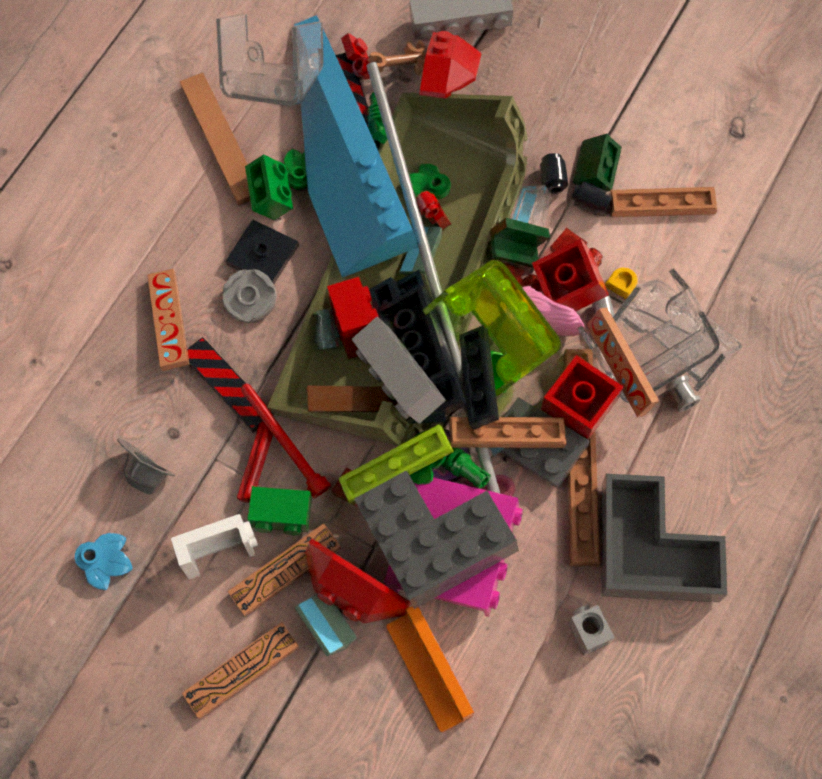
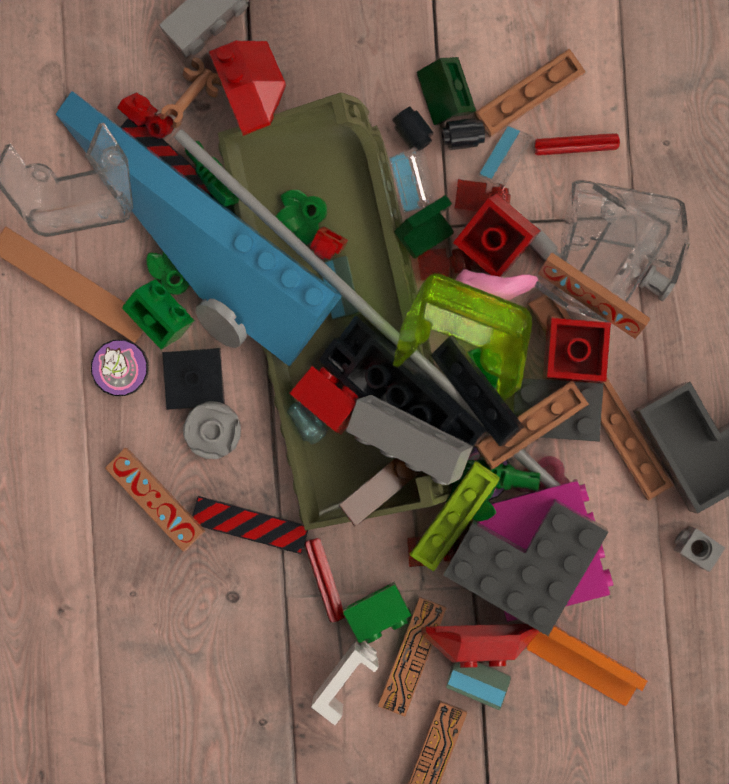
camera: 30 degrees left, 20 degrees up
(107, 561) = (258, 742): dark azure plate -> none
(141, 470) = (232, 649): dark grey piece -> none
(212, 213) = (120, 367): none -> tile
(310, 218) = (221, 322): none -> light grey tile
(316, 483) = (391, 567): red piece -> none
(616, 235) = (505, 156): none -> slope
(622, 281) = (540, 201): yellow tile -> none
(678, 257) = (576, 144): none -> red axle

